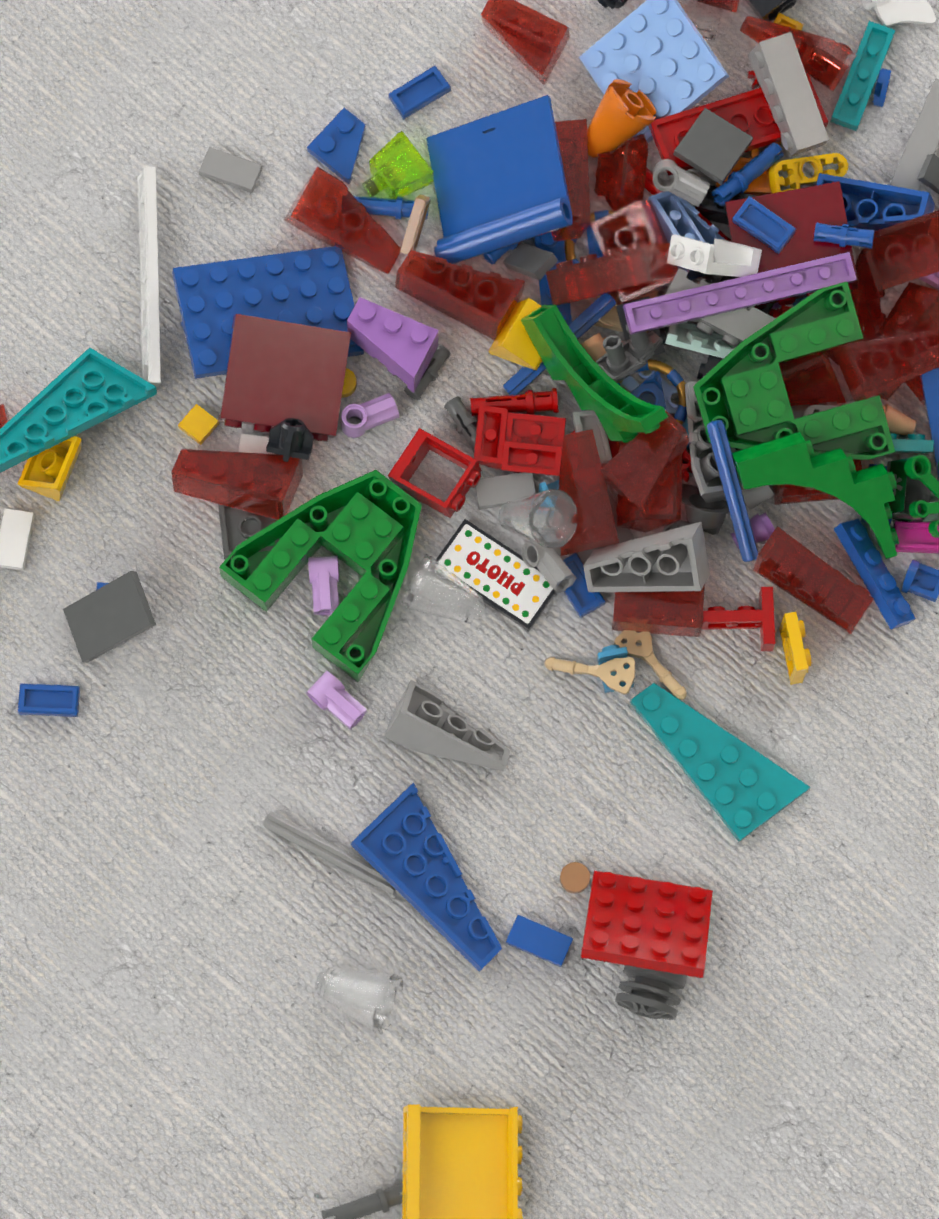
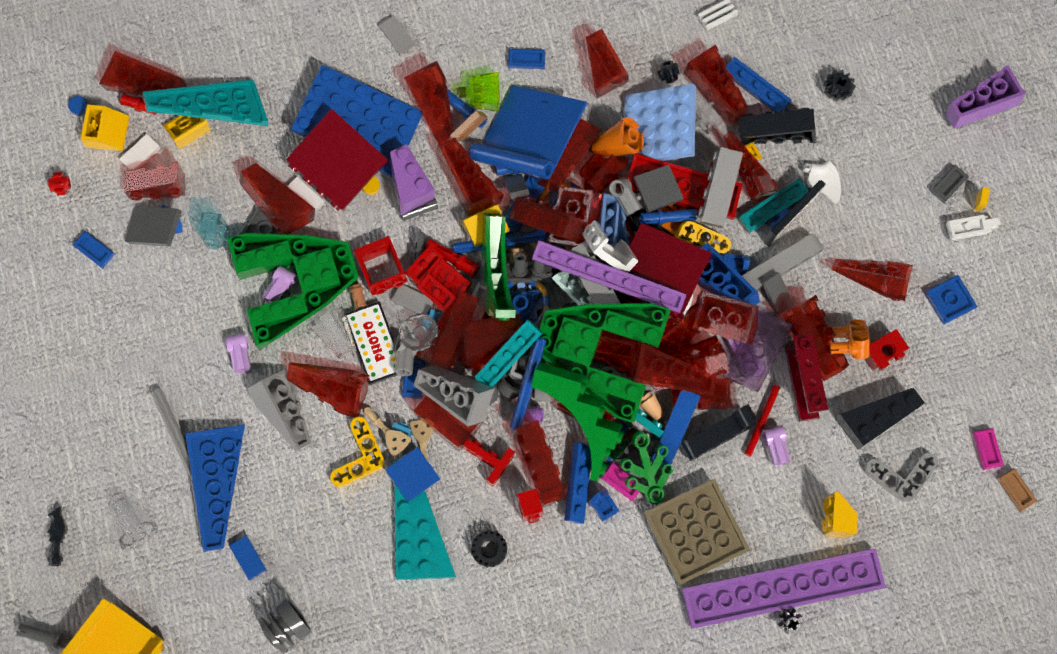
camera: 30 degrees right, 0 degrees up
(66, 561) = (155, 183): none -> clear red wedge
(149, 276) = (310, 63): white tile -> none
(193, 569) = (213, 230): none -> clear light blue brick
(198, 424) = (278, 156): yellow tile -> none
(278, 1073) = (57, 532): none -> black piece
(291, 439) = (314, 196): black piece -> none
(339, 144) = (464, 58): blue wing -> none
(371, 414) = (372, 211): lavender piece -> none
(433, 531) = (358, 297): none -> nougat pin
(491, 659) = (337, 386): none -> clear red wedge
(575, 877) = (292, 537): medium nougat tile -> none
(594, 725) = (363, 461): none -> yellow beam
(647, 924) = (305, 591): red plate -> none
(668, 700) = (412, 474): none -> blue tile
(688, 468) = (509, 354): none -> teal plate
(764, 225) = (652, 249): blue tile -> none
(796, 656) = (505, 487): yellow plate -> none
(825, 708) = (483, 537): none -> black tyre
(839, 639) = (530, 506): none -> red brick
(844, 235) = (691, 283): blue pin -> none
(873, 171) = (738, 262): none -> blue tile
(897, 68) = (794, 213): none -> black tile

